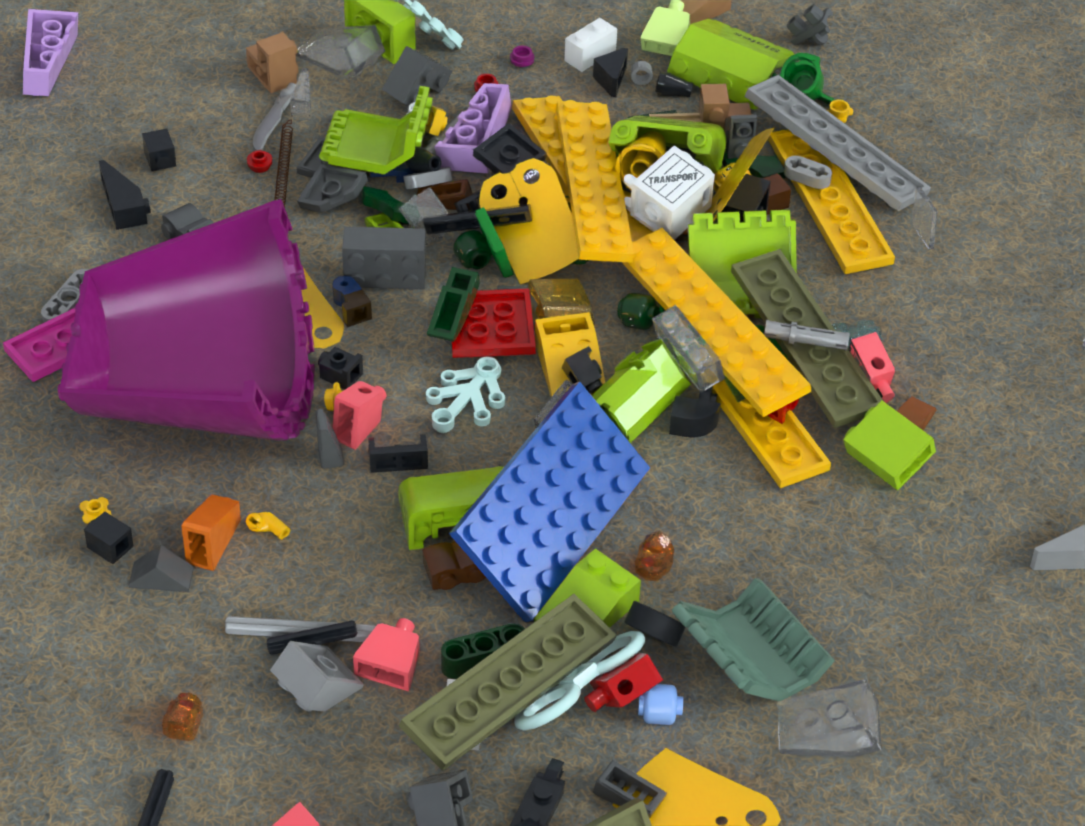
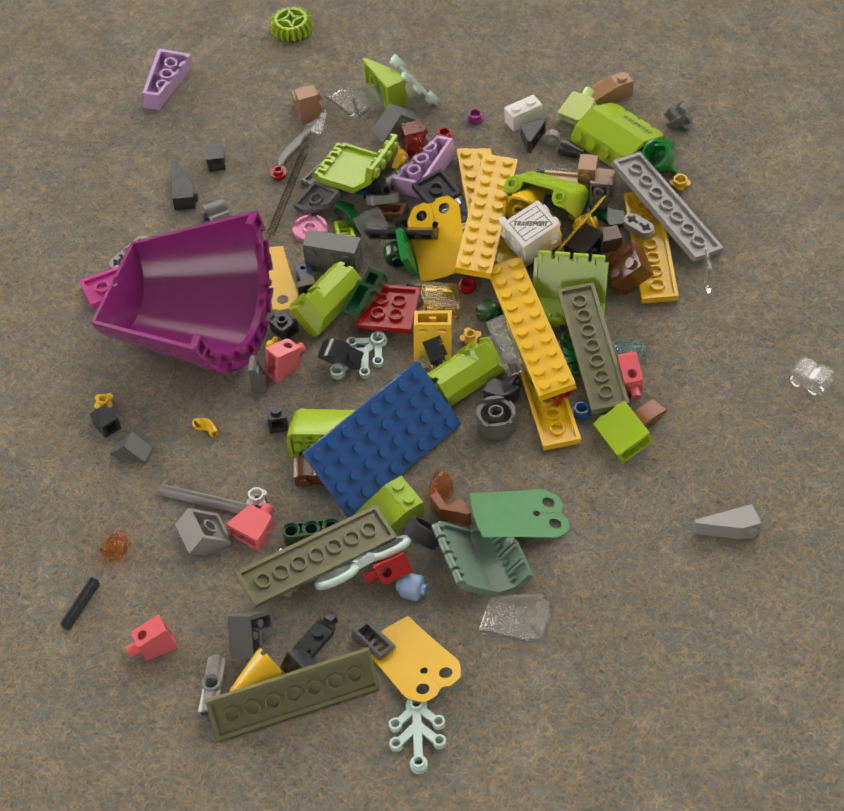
camera: 20 degrees right, 5 degrees up
(210, 530) = (166, 425): orange slope -> none
(314, 636) = (210, 506): black axle -> none
(328, 238) = (311, 223): none -> bright pink tile
(373, 490) = (275, 414): none -> black brick
(380, 606) = (256, 492): none -> white plate
(395, 320) = (325, 298): none -> lime brick
(398, 456) = (301, 392): black hinge -> none
(442, 389) = (340, 352): none -> black brick
(450, 90) = (413, 137): none -> clear red brick
(591, 279) = (467, 285): none -> red plate
(619, 347) = (470, 336): none -> yellow plate
(689, 588) = (454, 512): none -> dark orange slope
(701, 452) = (496, 418): none -> dark grey brick
(771, 582) = (512, 514): none -> piece
(808, 335) = (582, 344): light grey pin -> none
(816, 425) = (581, 406): none -> blue plate
(818, 226) = (628, 267): none -> reddish brown brick

